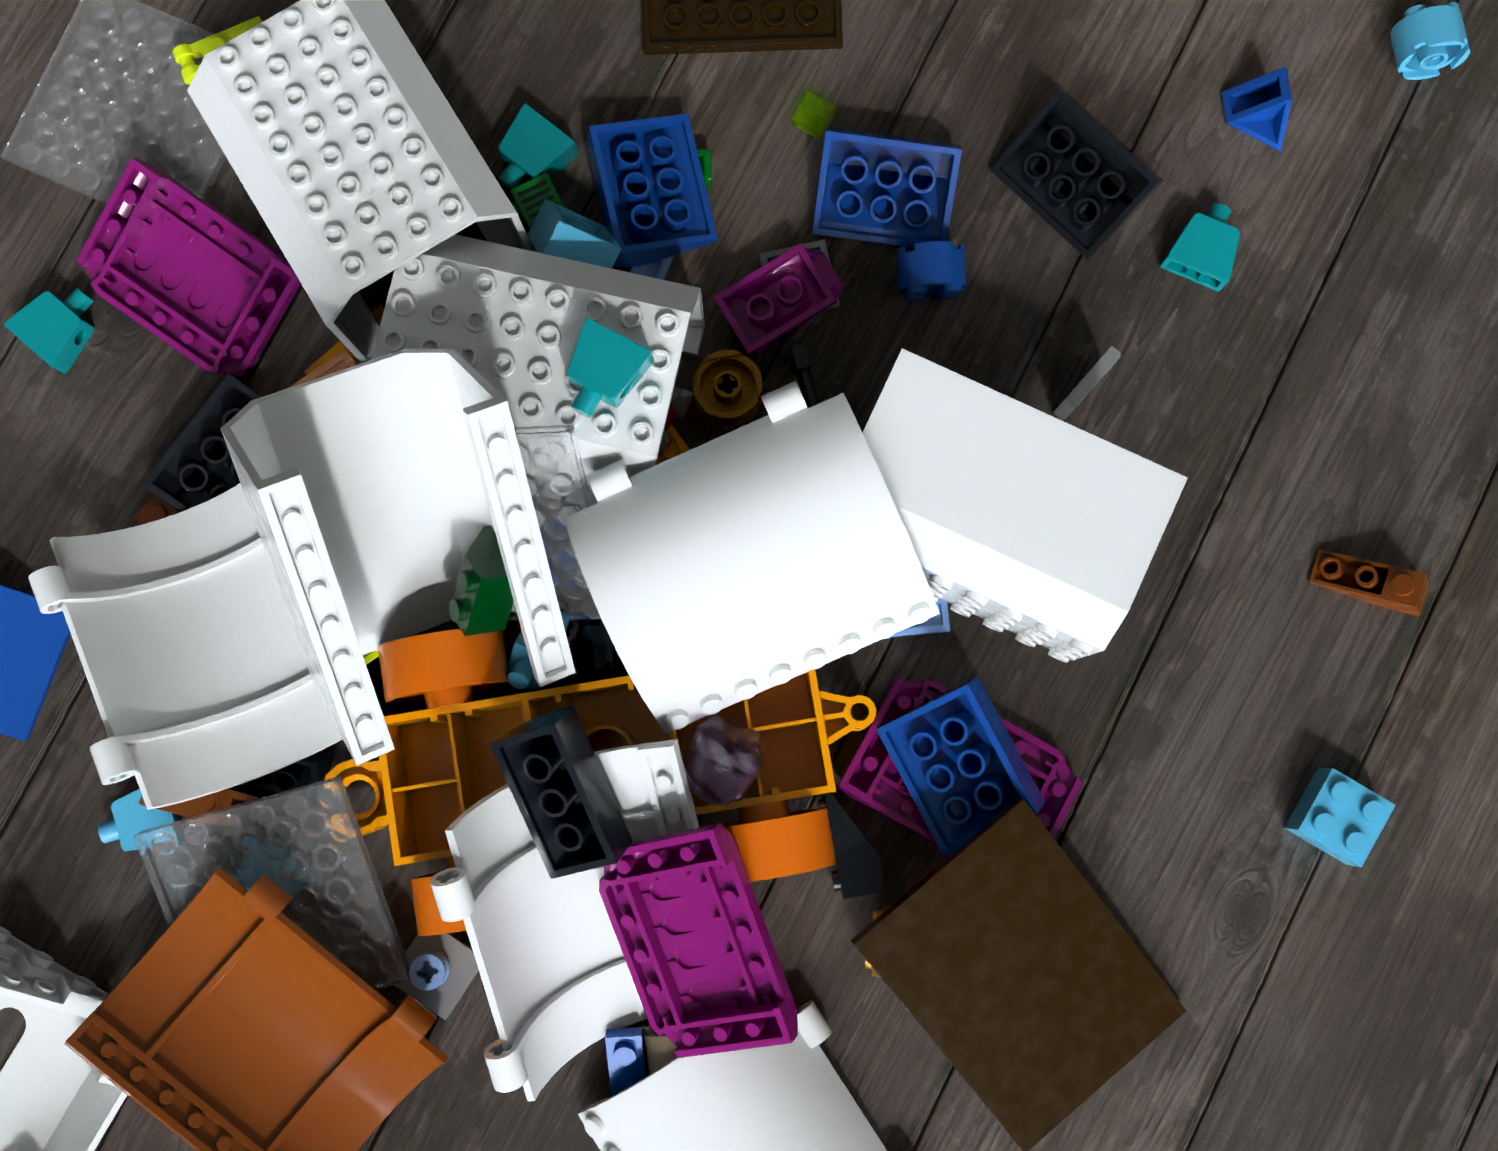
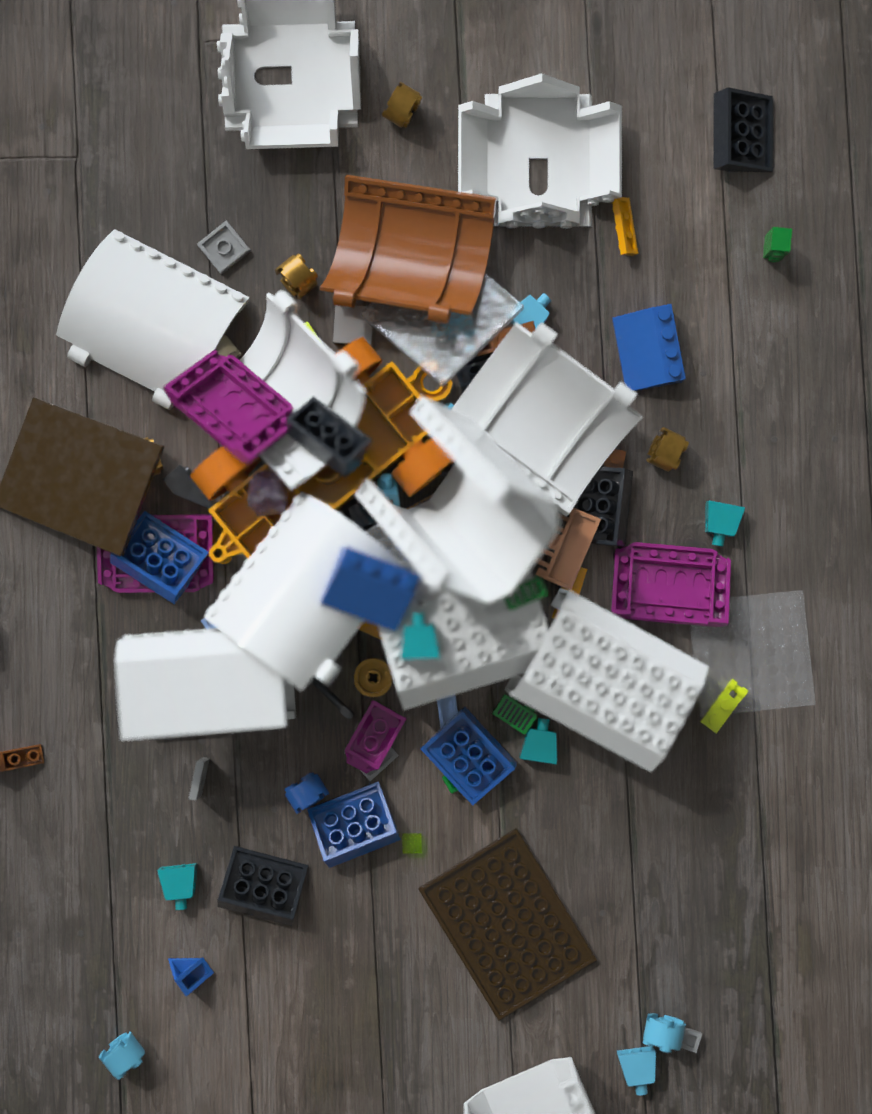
camera: 145 degrees right, 5 degrees up
(65, 480) = (667, 449): none -> pearl gold brick
(361, 333) = (542, 592): none -> green slope
(437, 968) = (352, 325): light blue wheel -> none
(474, 1106) = (297, 276): none -> pearl gold brick
(482, 588) = (421, 510): dark green slope -> none
(572, 236) = (487, 704): medium azure brick -> none
(625, 1057) = (240, 335): blue plate -> none
(634, 495) = (370, 588): none -> blue slope

